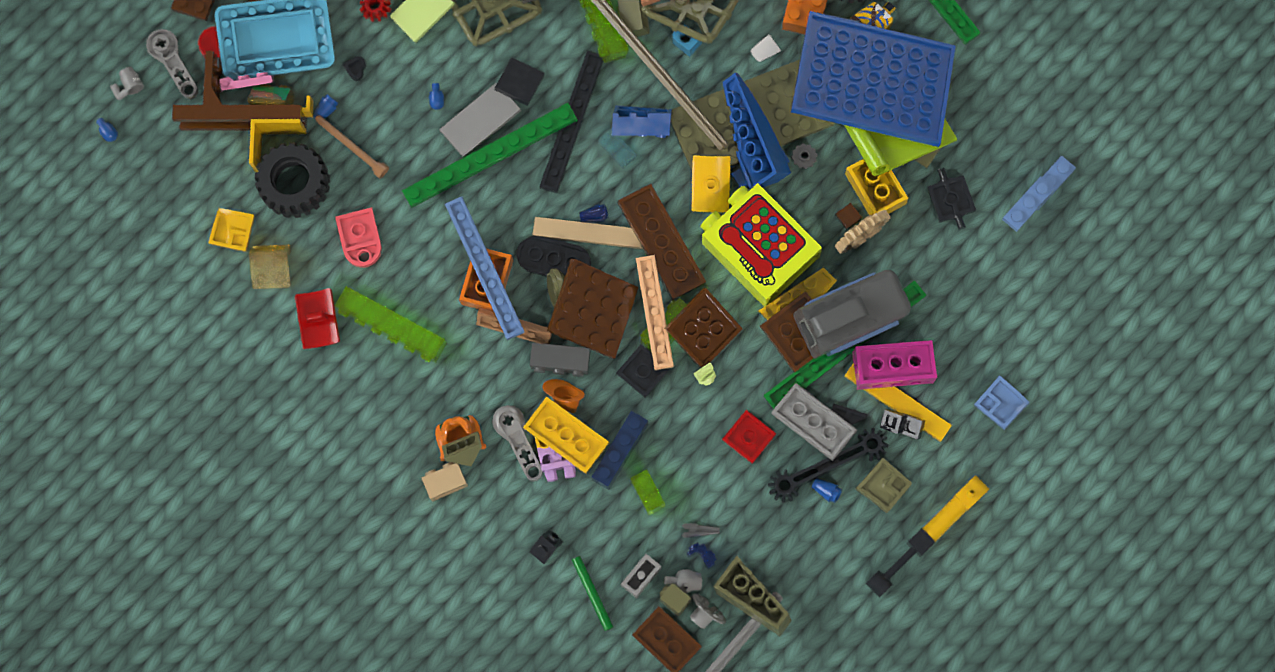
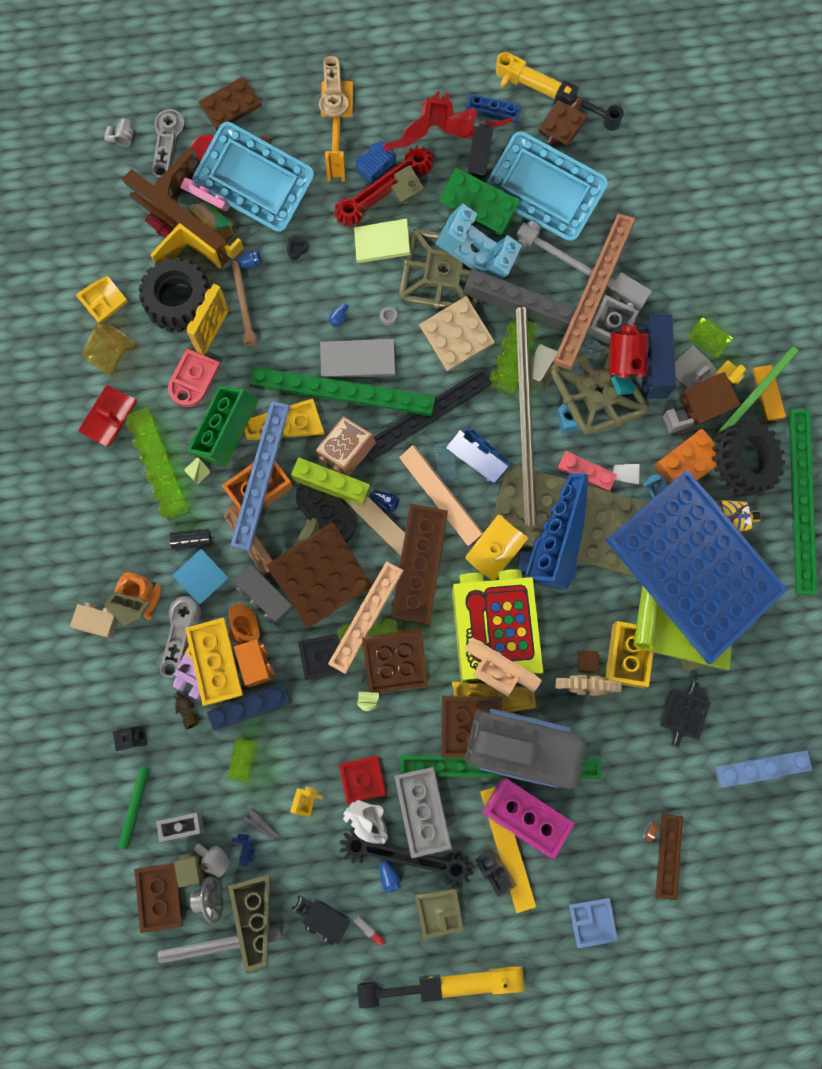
camera: 30 degrees right, 0 degrees up
(107, 130) = (76, 156): blue cylinder -> none
(230, 136) = (160, 227): none -> dark red pin
(338, 178) = (208, 319): none -> yellow plate
(419, 254) = (222, 425): none -> green brick
(426, 306) = (197, 471): none -> yellowish green slope
(466, 361) = (190, 539): none -> black axle
(477, 67) = (388, 316): none -> light grey tile
(479, 202) = (301, 421): none -> yellow wing
(498, 383) = (200, 576): none -> dark azure slope
(519, 81) = (411, 351): black tile -> none
(530, 196) = (345, 446): none -> brick
(542, 231) = (331, 482): none -> lime brick
(544, 40) = (456, 334): none -> tan plate
(569, 491) = (183, 706): none -> dark brown piece
(597, 414) = (253, 663): none -> orange brick
(634, 176) = (441, 495): none -> light nougat tile
(718, 484) = (304, 801): none -> yellow bracket
(746, 68) = (597, 475): none -> coral plate
(776, 461) = (363, 818): none -> white piece
(788, 270) = (500, 671): none -> light nougat bracket
(794, 41) = (656, 484): none -> dark azure bracket
(803, 558) = (323, 919): none -> black brick
(804, 150) = (585, 589): flat silver piece -> none
(843, 540) = (369, 931): none -> light grey piece
(849, 415) = (455, 826): black tile -> none
(992, 304) = (650, 831): none -> dark orange tile
(1020, 312) = (669, 857): none -> reddish brown tile

